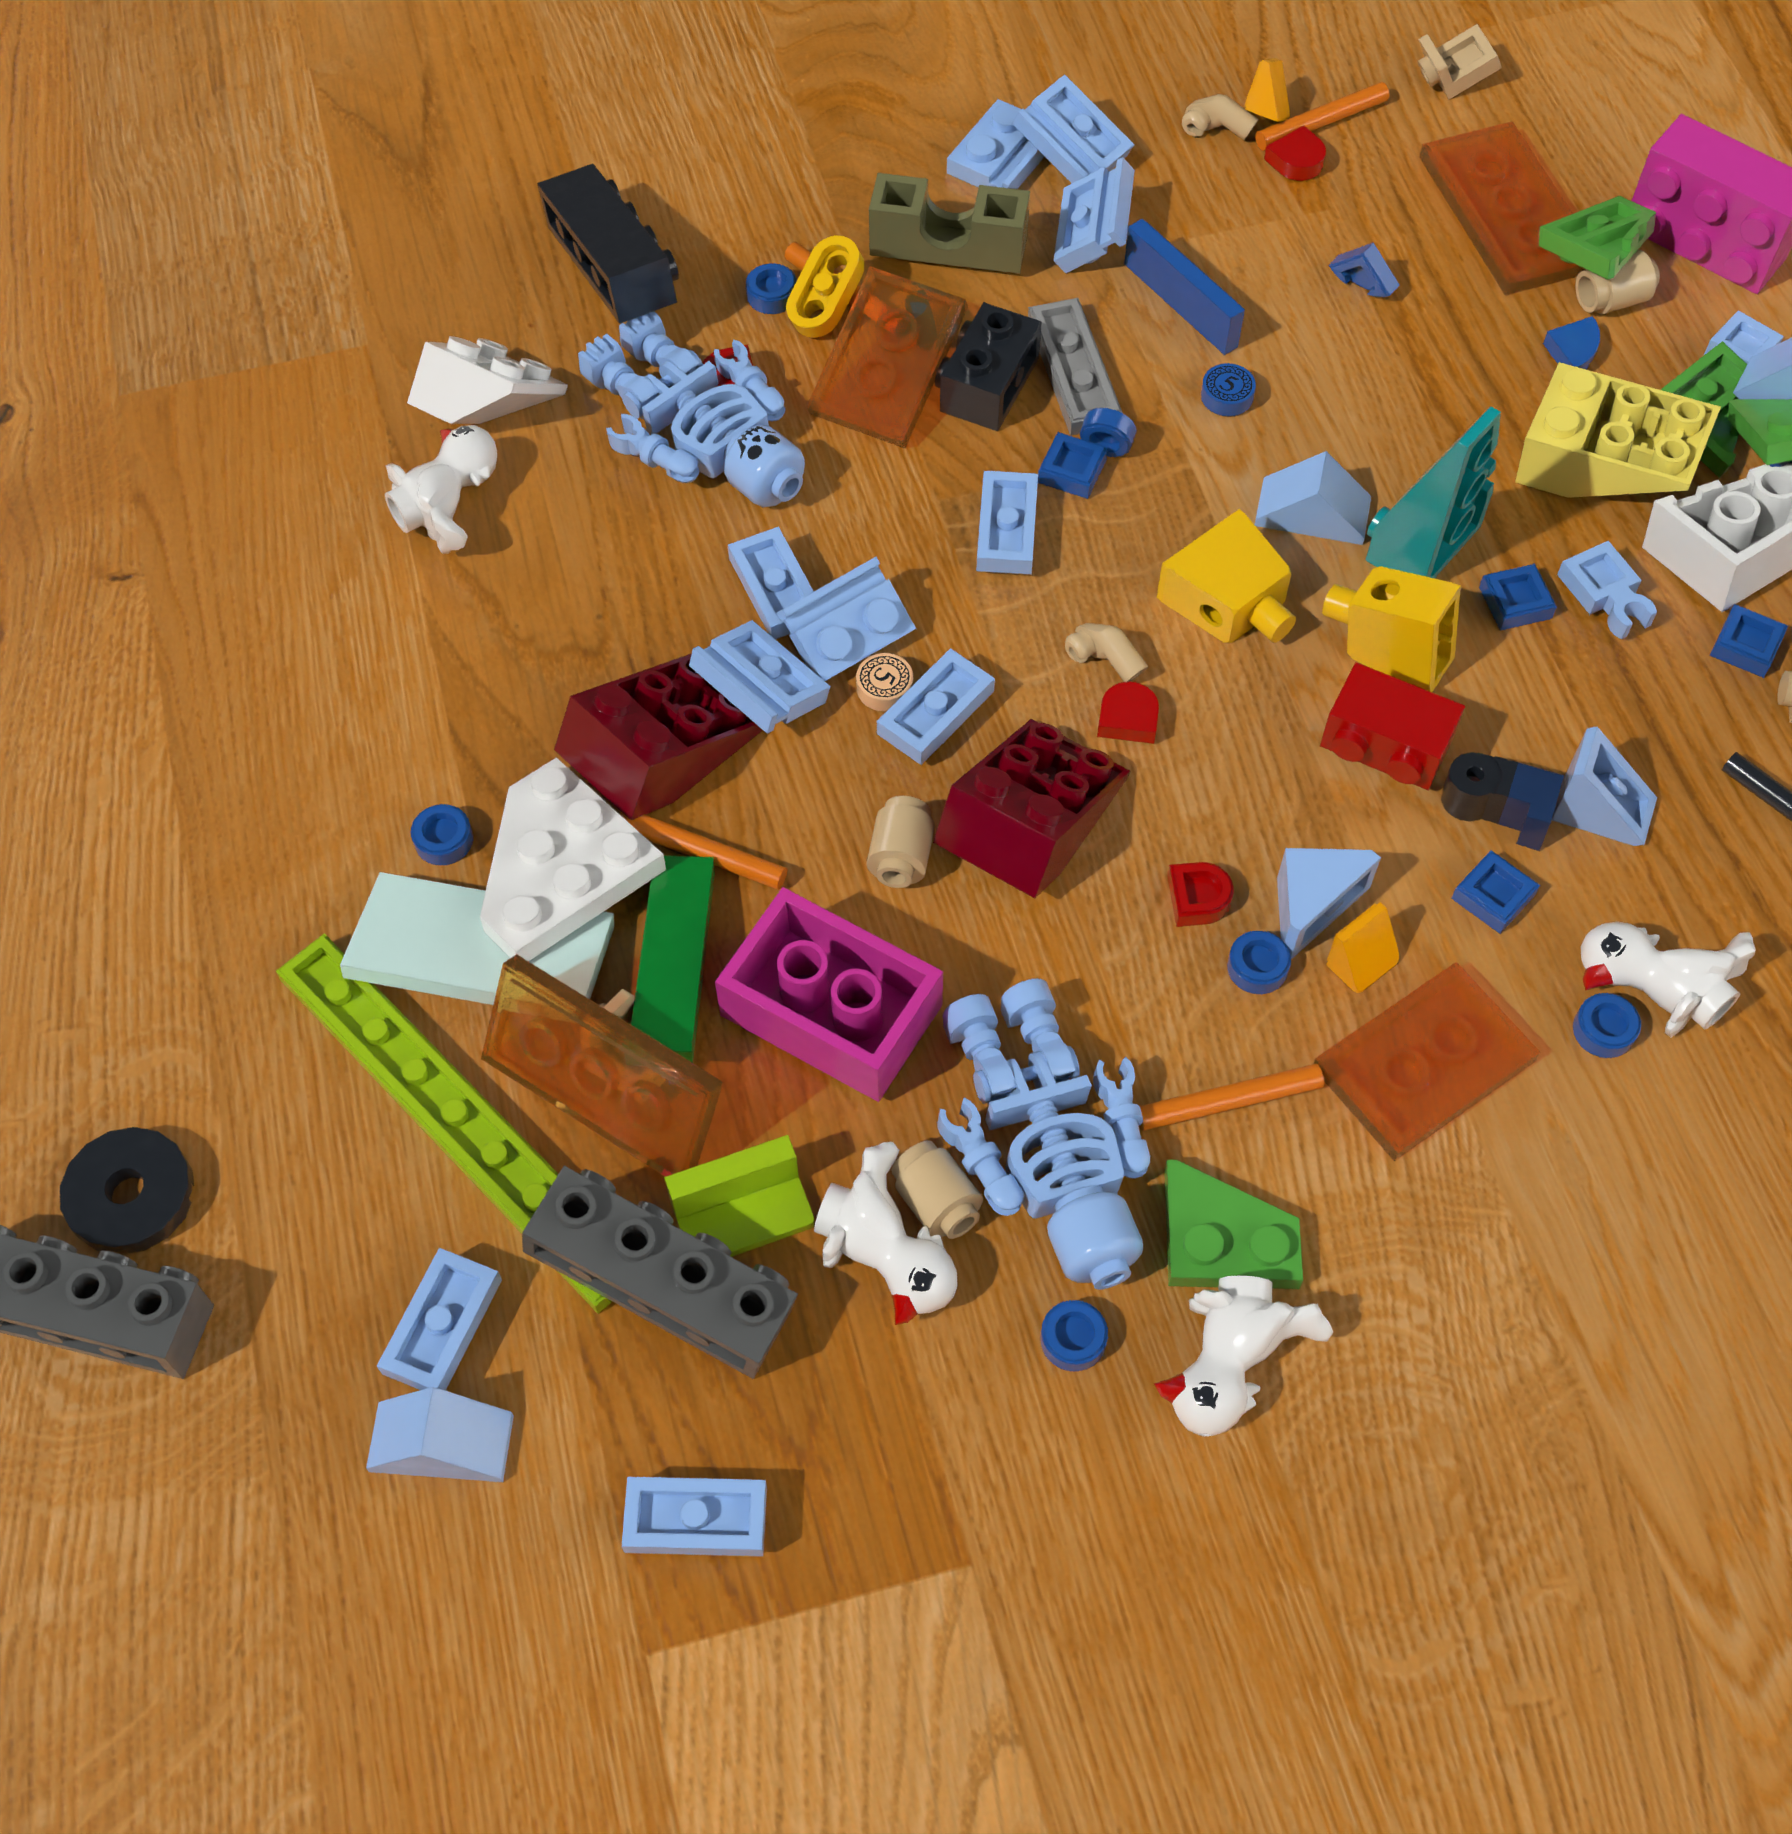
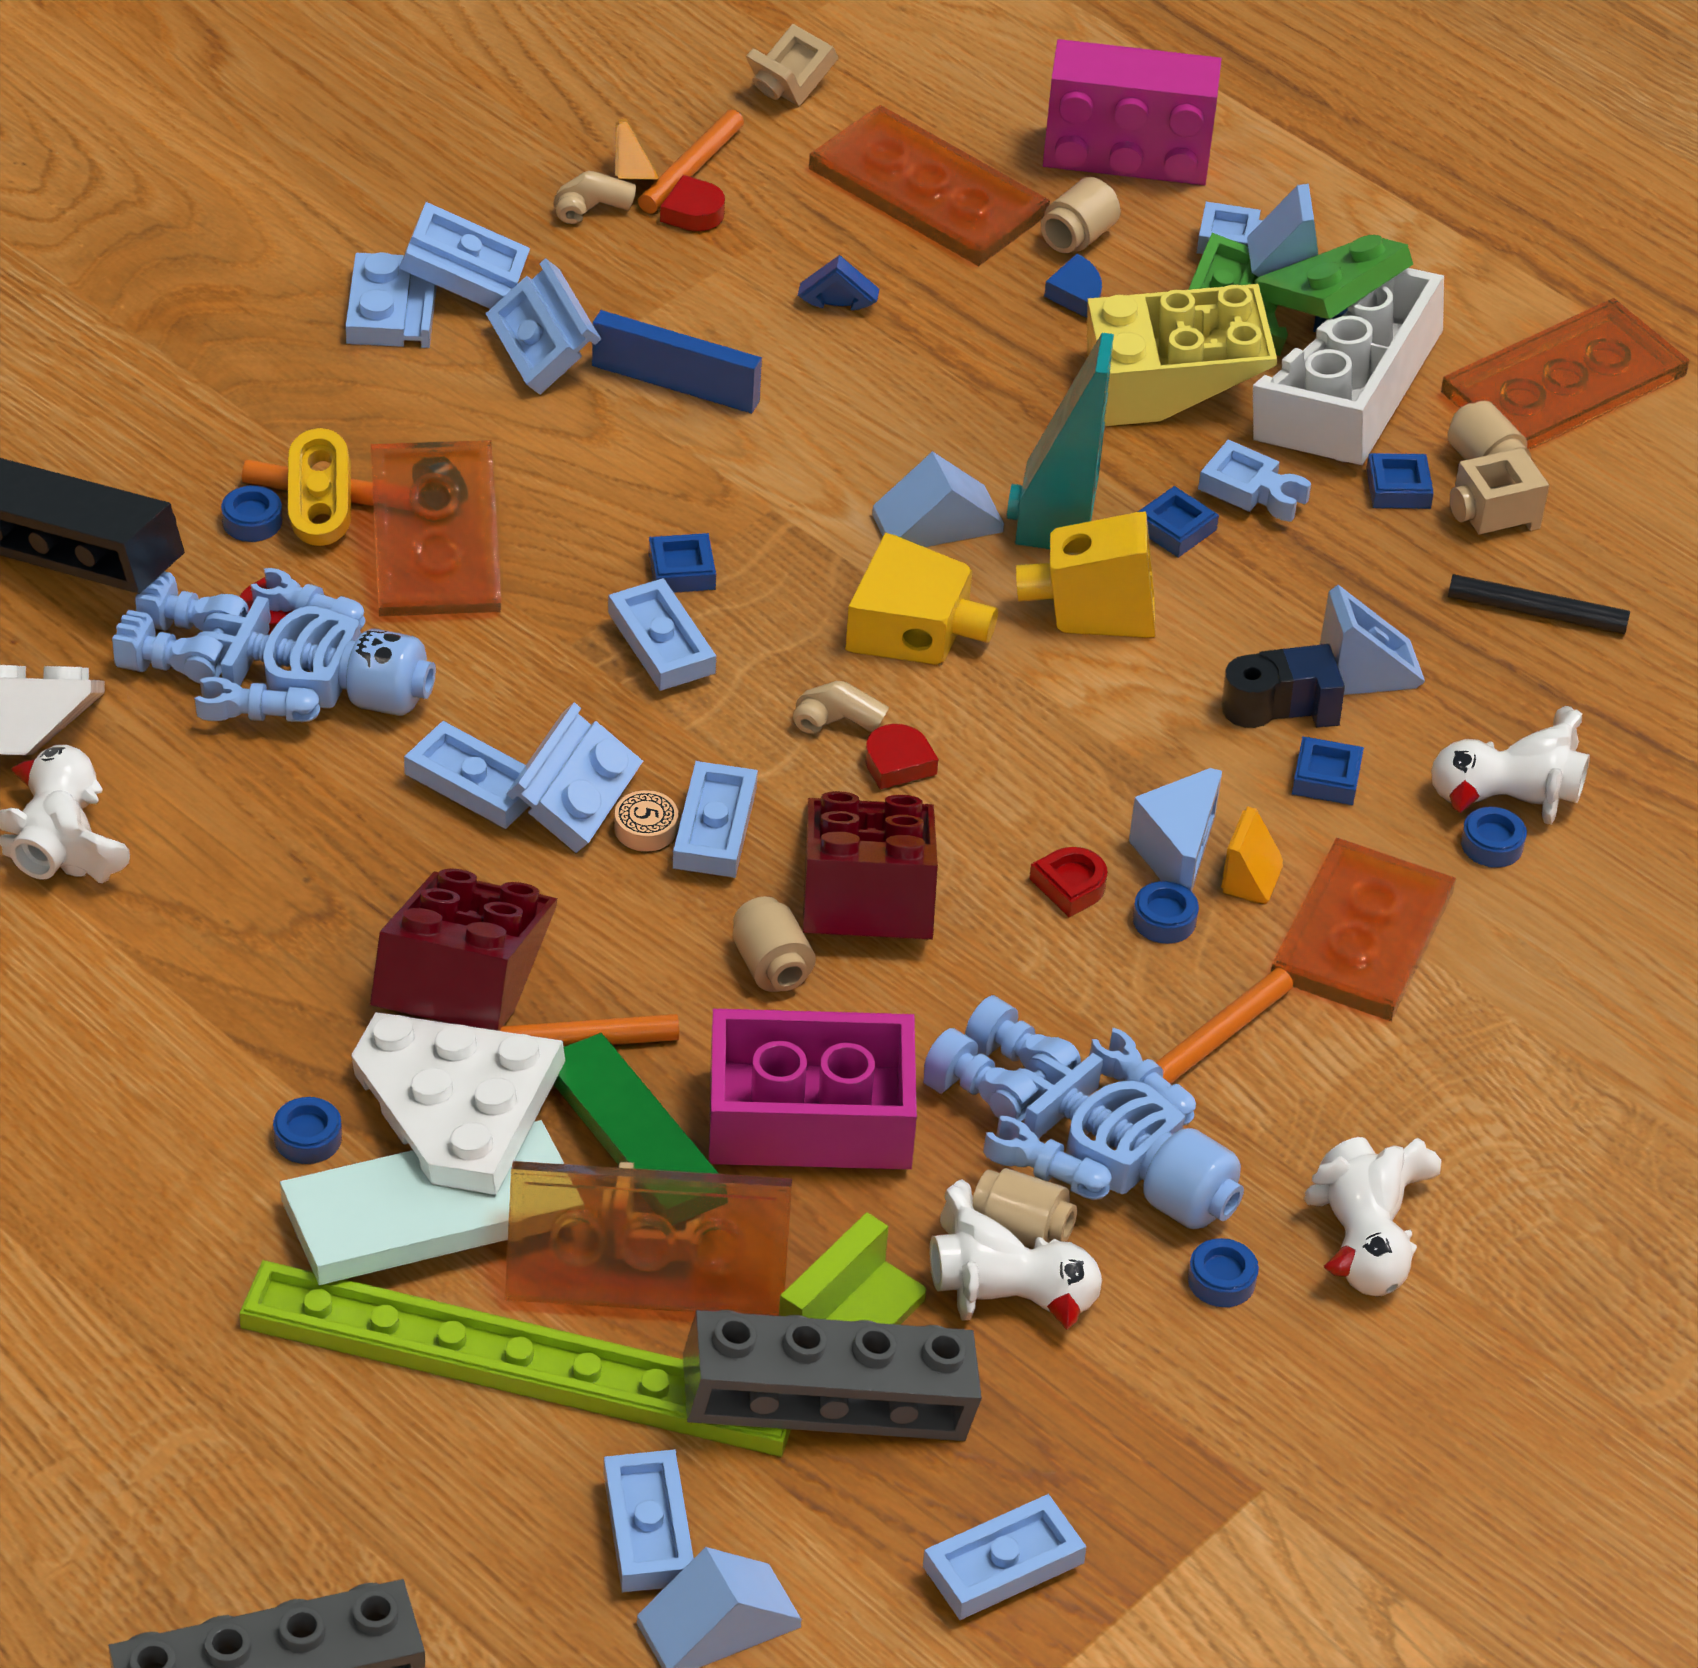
camera: 35 degrees left, 15 degrees down
(107, 1162) = (235, 1528): black tile -> none
(759, 676) = (527, 858): light blue plate -> none
(913, 228) = (448, 382): olive arch -> none
(988, 366) = (539, 500): black brick -> none
(1073, 362) = (616, 474): light grey tile -> none
(1109, 429) = (700, 514): blue tile -> none
(1226, 1233) = (1287, 1134): bright green wing -> none
(1228, 389) = (782, 441): blue tile -> none
(1391, 726) = (1150, 665): red brick -> none
(1600, 236) = (1042, 176): bright green wing -> none

